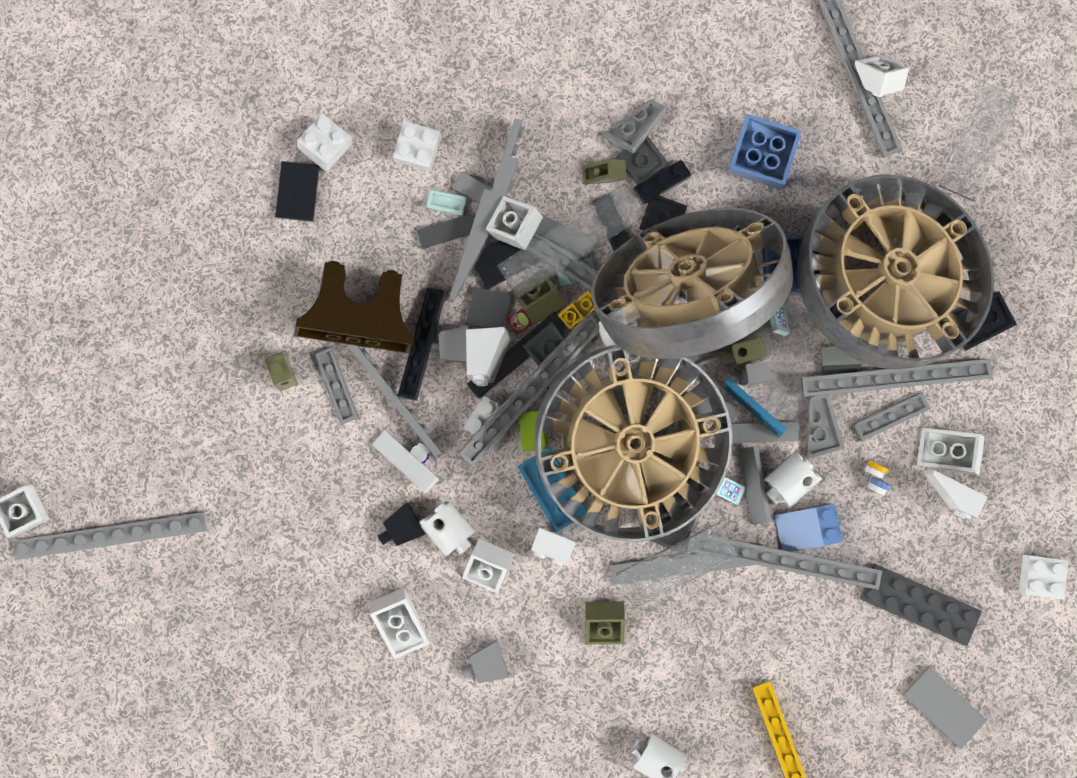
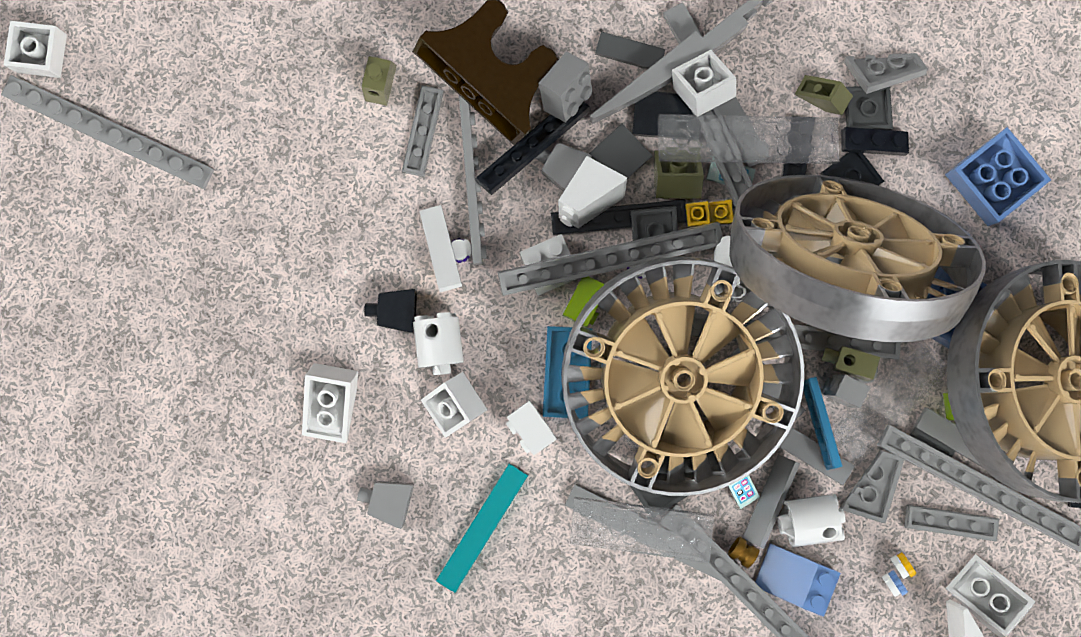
camera: 30 degrees right, 0 degrees up
(419, 289) = (566, 87): none -> light grey brick
(446, 202) = (648, 23): light aqua tile -> none
(519, 321) = (643, 186): tile -> none
(565, 639) = (482, 528): none -> teal tile
(604, 622) = (532, 537): olive slope -> none
(759, 534) = (744, 553): none -> pearl gold wheel
(779, 322) = (902, 355): tile -> none

